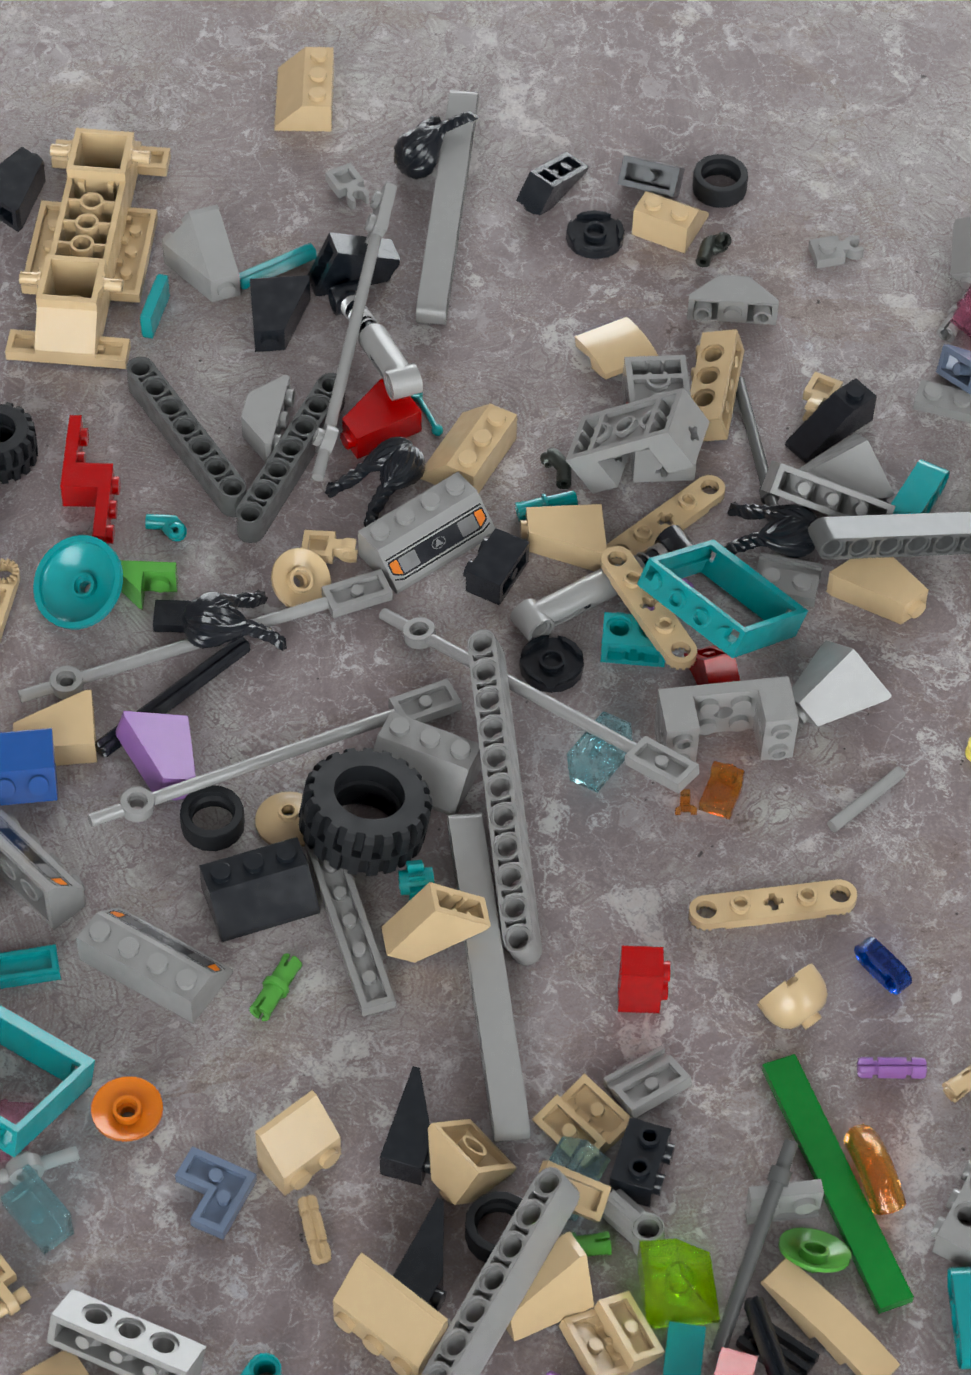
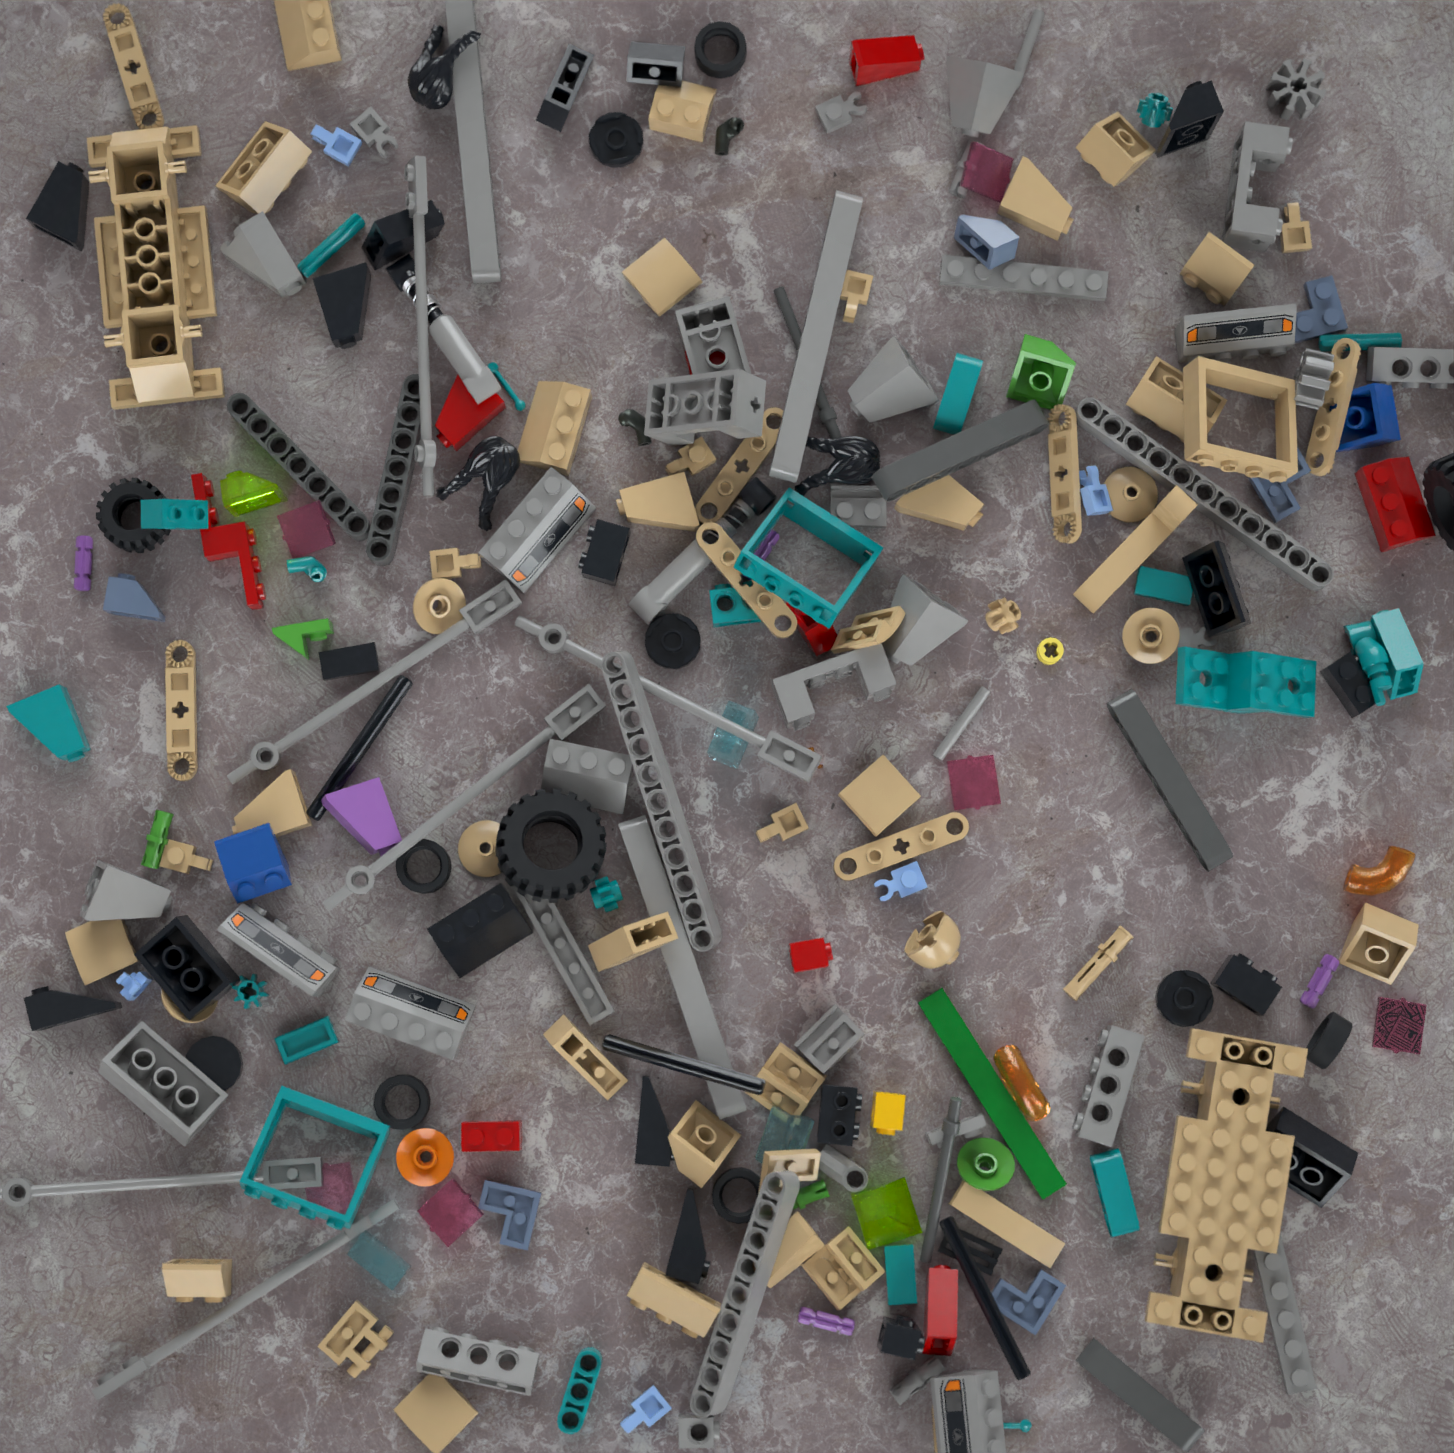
camera: 10 degrees left, 30 degrees up
(42, 433) = (174, 514): none -> teal brick
(64, 576) = (237, 664): teal dish -> none
(117, 1024) = (380, 1098): none -> black tyre
(121, 83) = (128, 50): none -> tan piece
(131, 446) = (249, 493): none -> clear neon green slope
(140, 1176) = (450, 1212): none -> clear pink piece
(154, 306) = (232, 321): teal tile -> none
(177, 487) = (306, 529): none -> clear pink piece
(213, 1100) = (491, 1136): none -> red brick
(215, 620) = (376, 674): black hair -> none
(233, 189) = (264, 168): none -> tan slope
(267, 415) = (365, 430): light grey slope -> none
(275, 987) = (514, 1016): bright green pin -> none
(297, 1144) = (569, 1165): tan slope -> none
(308, 189) = (339, 145): none -> light blue plate
(314, 1229) = (596, 1226): tan axle -> none
(349, 1042) = (585, 1057): none -> tan slope
(466, 1063) = (684, 1064): none -> black axle
(561, 499) = (634, 473): teal axle -> none
(616, 504) = (693, 458): none -> tan plate
(641, 852) = (786, 823): none -> tan plate
(703, 1160) = (887, 1112): none -> yellow brick
(717, 379) = (749, 265): tan brick -> none
(722, 790) = (840, 744): clear orange bracket -> none
(733, 300) = (758, 199): light grey slope -> none
(757, 847) = (879, 795): none -> tan slope
(768, 421) = (815, 337): none -> light grey beam
(770, 939) = (905, 881): none -> light blue plate
(786, 666) = (869, 629): none -> tan slope
(820, 493) = (881, 427): light grey brick -> none
(833, 421) = (870, 323): black slope -> none
(870, 859) = (973, 782): none -> clear pink piece
(883, 965) = (999, 889): clear blue beam -> none
(888, 209) = (884, 58): none -> red slope
(891, 1067) = (1020, 981): medium lavender axle -> none
(932, 700) = (1003, 615): none -> tan gear

